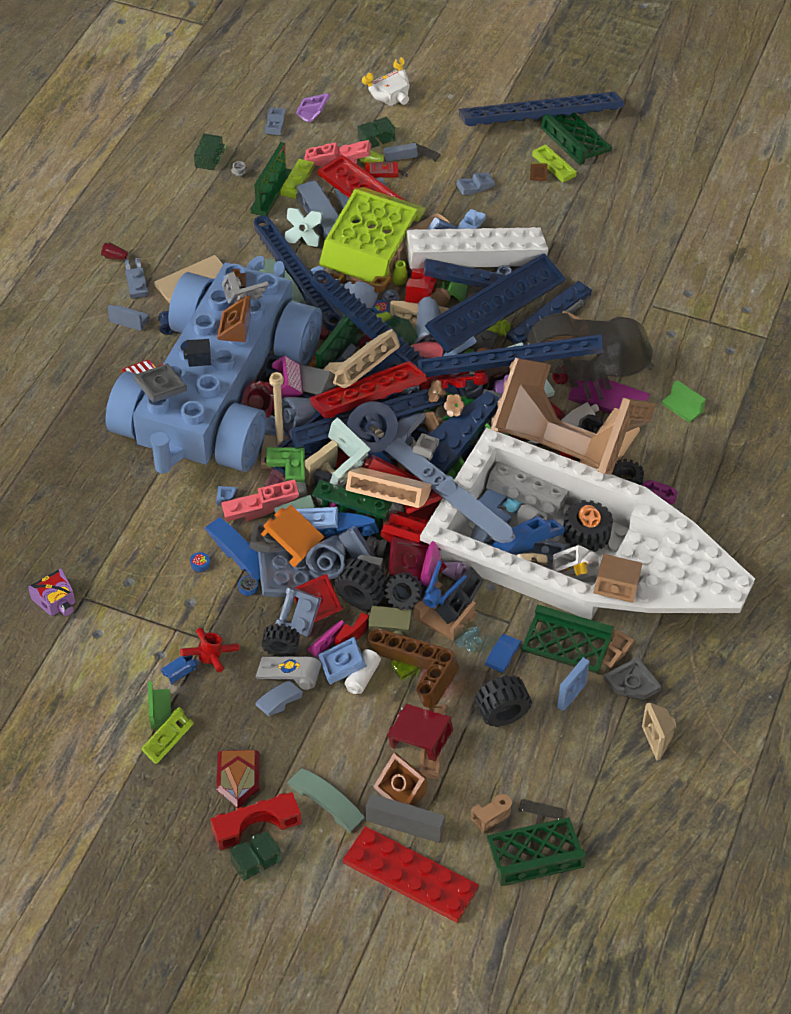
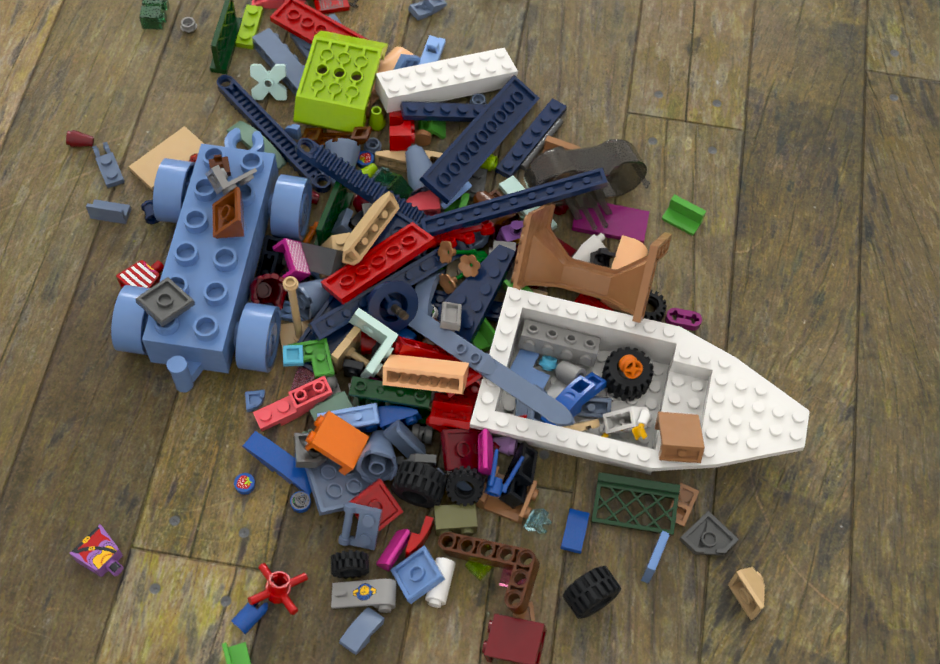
camera: 15 degrees left, 10 degrees up
(198, 352) = (197, 259): black brick -> none
(268, 456) = (292, 355): none -> medium azure tile

